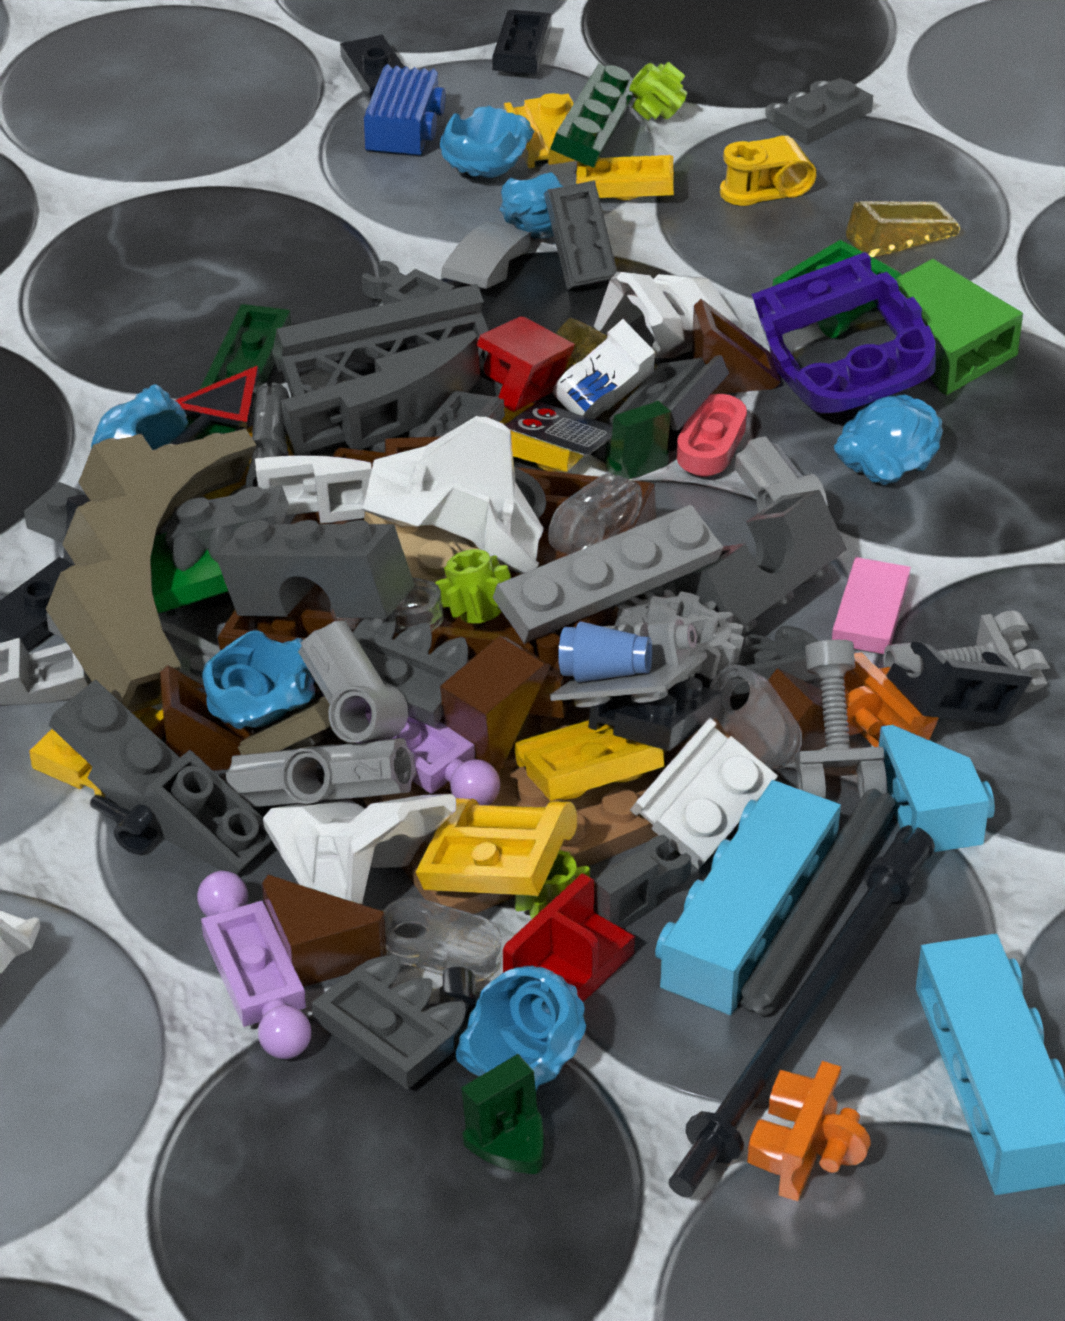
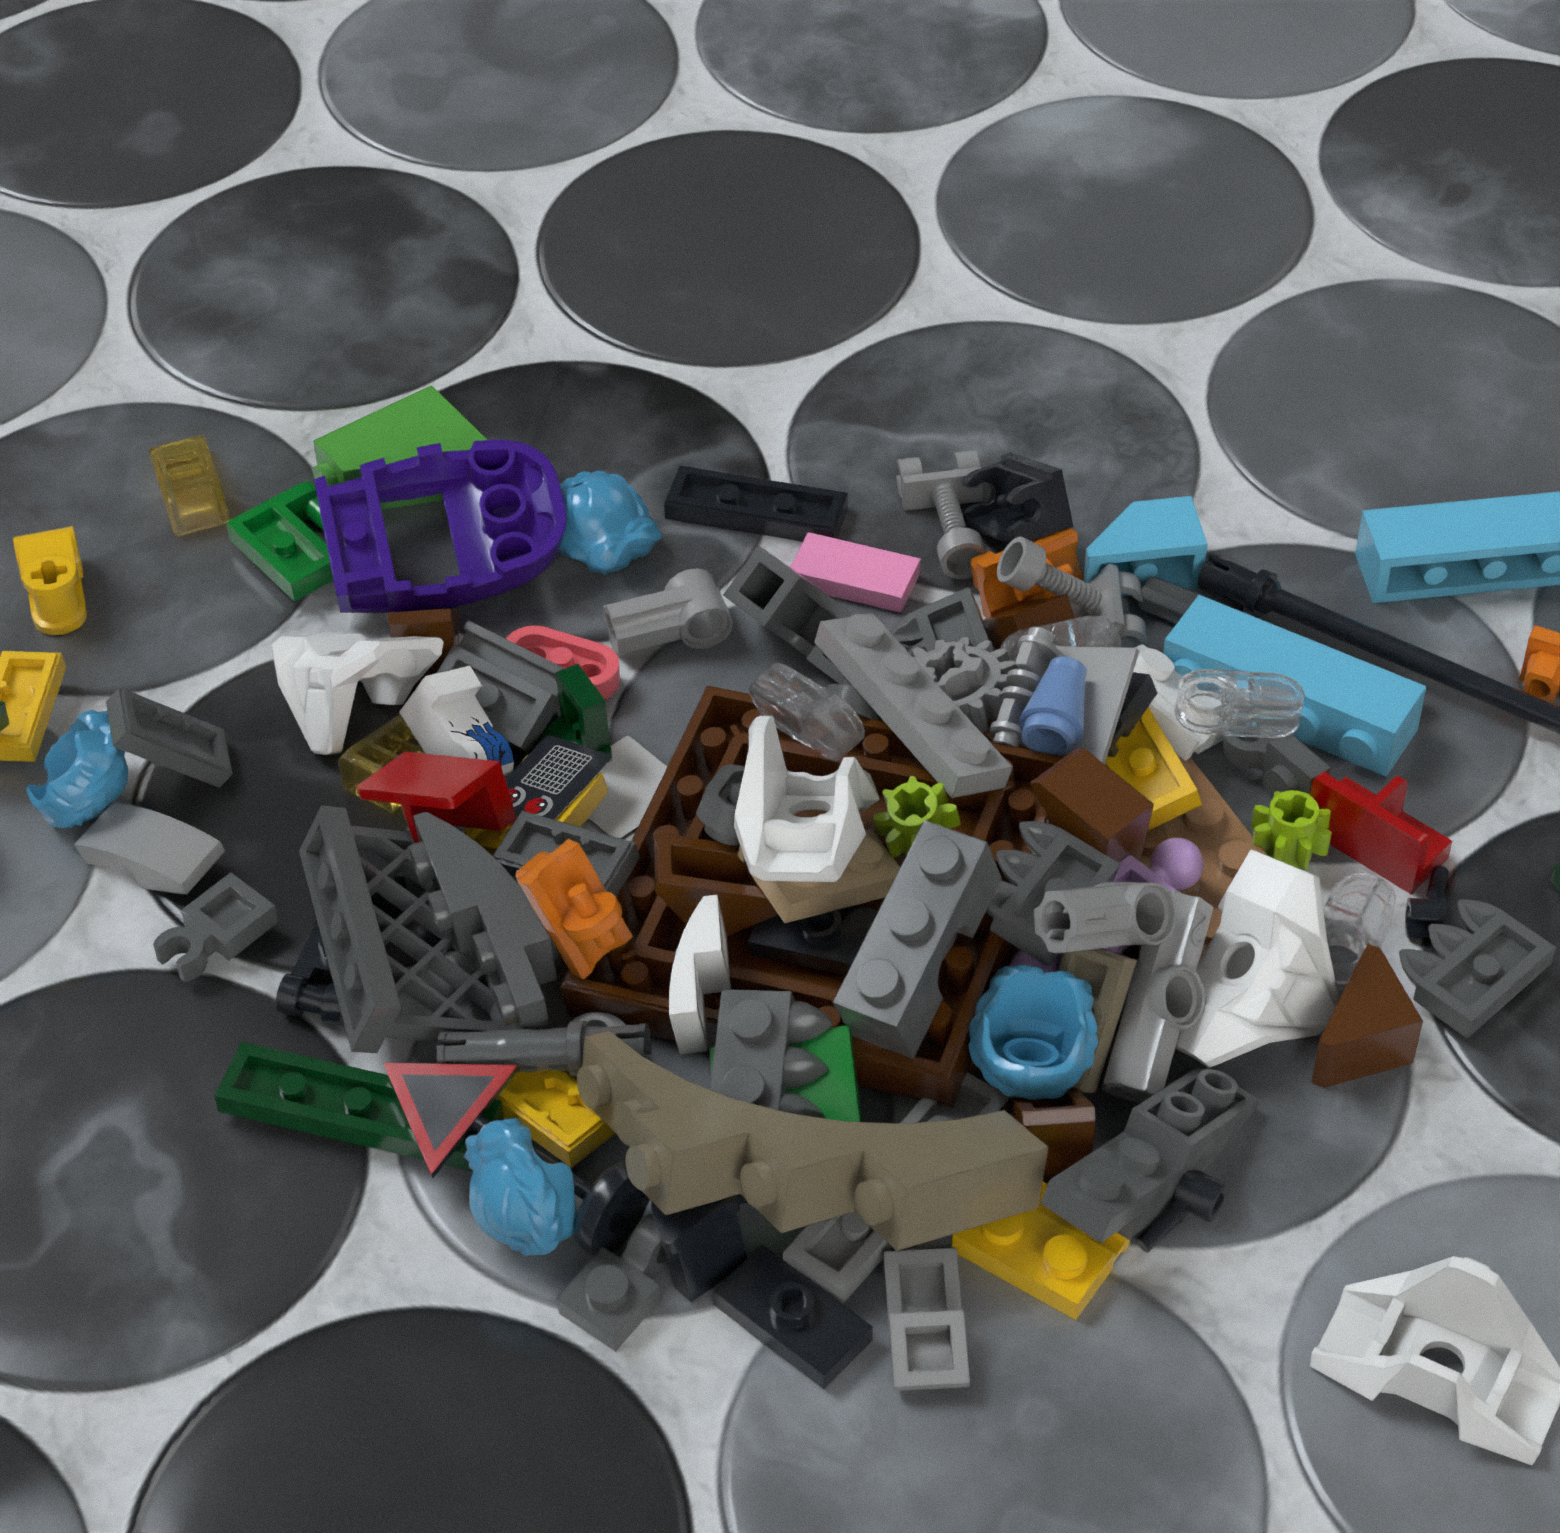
camera: 85 degrees left, 5 degrees up
(254, 965) = (1405, 1080): lavender plate -> none
(371, 408) = (573, 906): none -> orange hips
(496, 848) = (1305, 836): yellow plate -> none
(524, 1014) = (1491, 853): dark azure hair -> none
(674, 829) = (1251, 703): none -> clear piece
(952, 543) = (754, 504): none -> black tile

